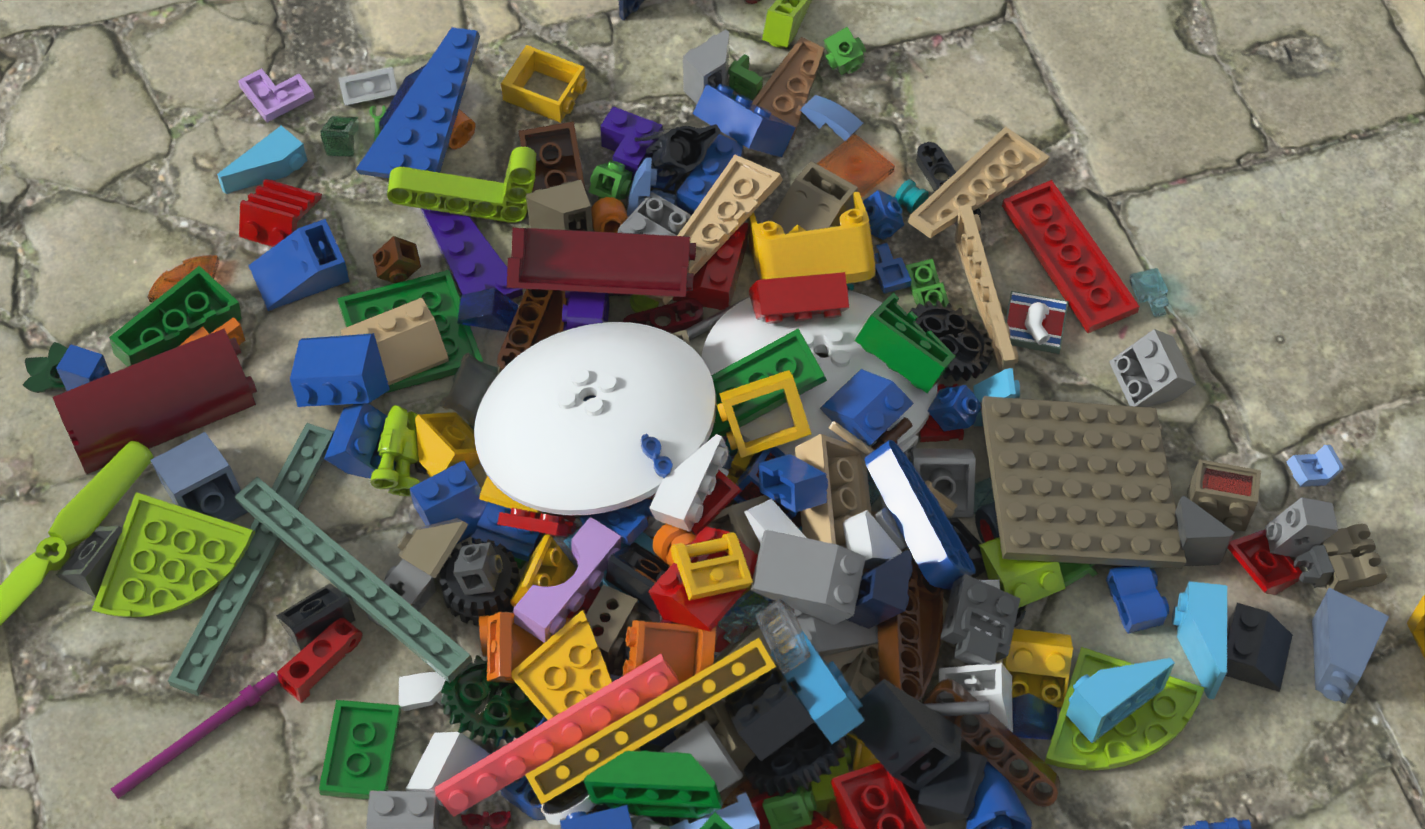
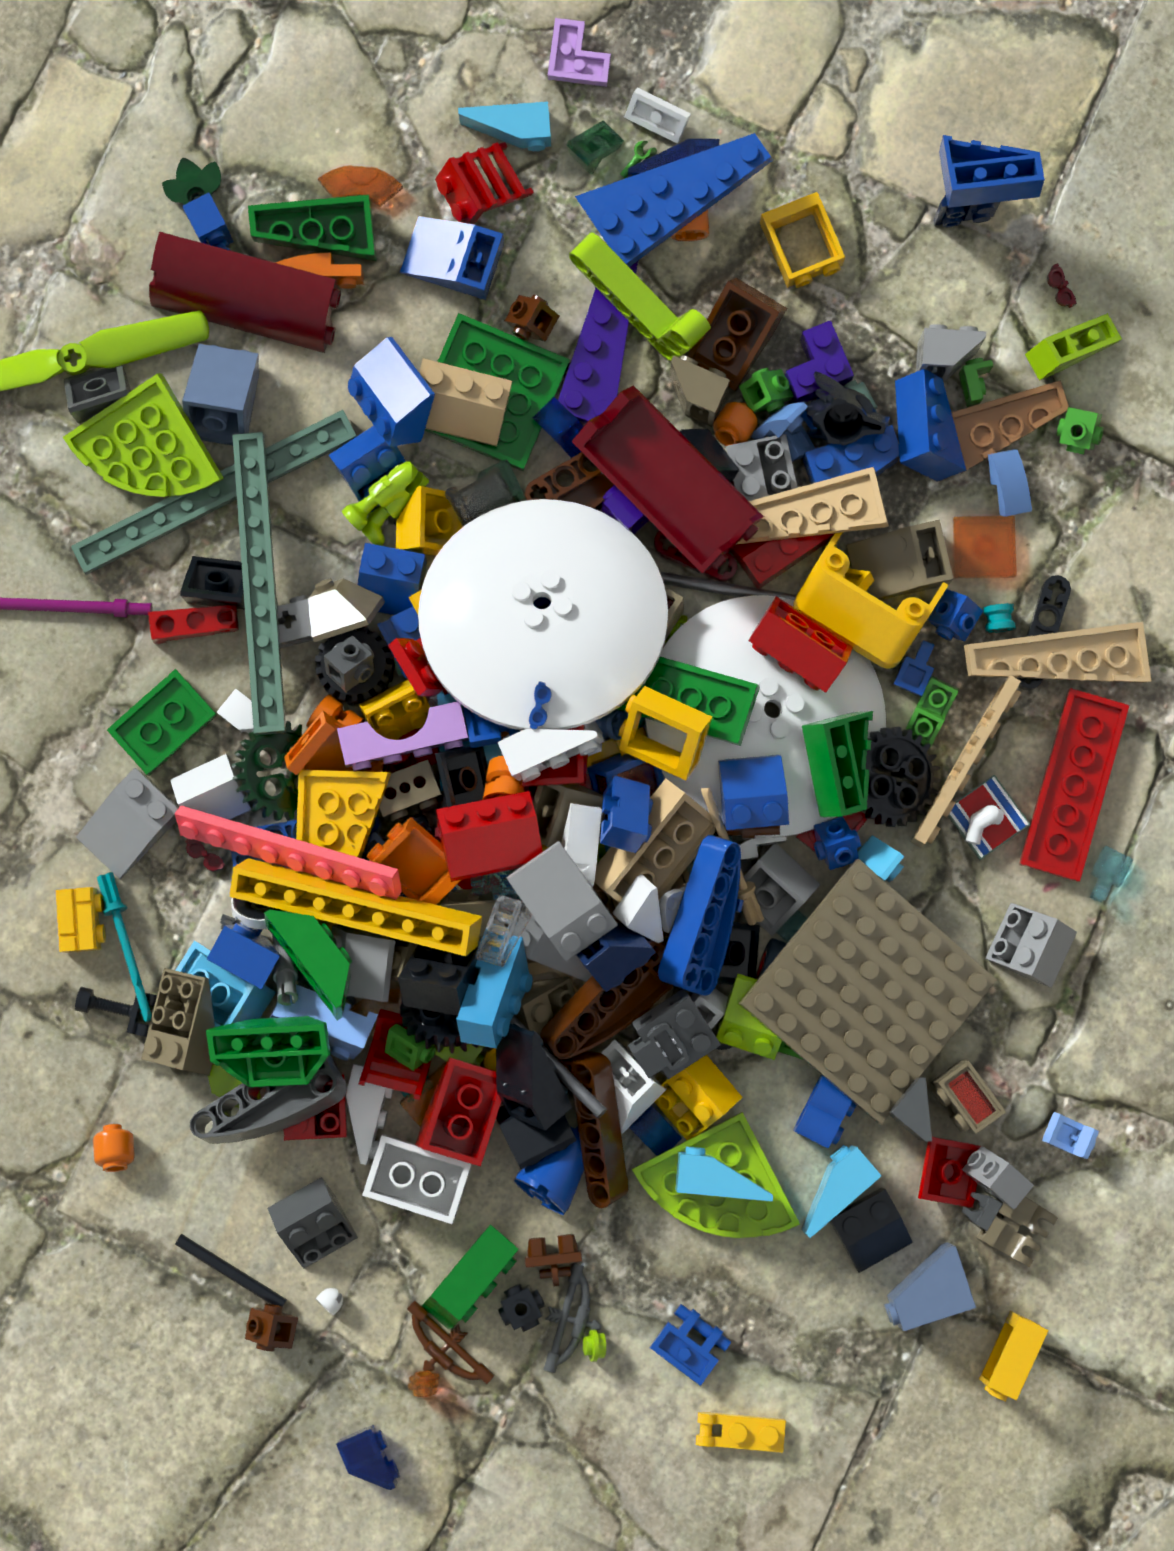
camera: 45 degrees right, 25 degrees up
(712, 575) = (490, 846): yellow plate -> none

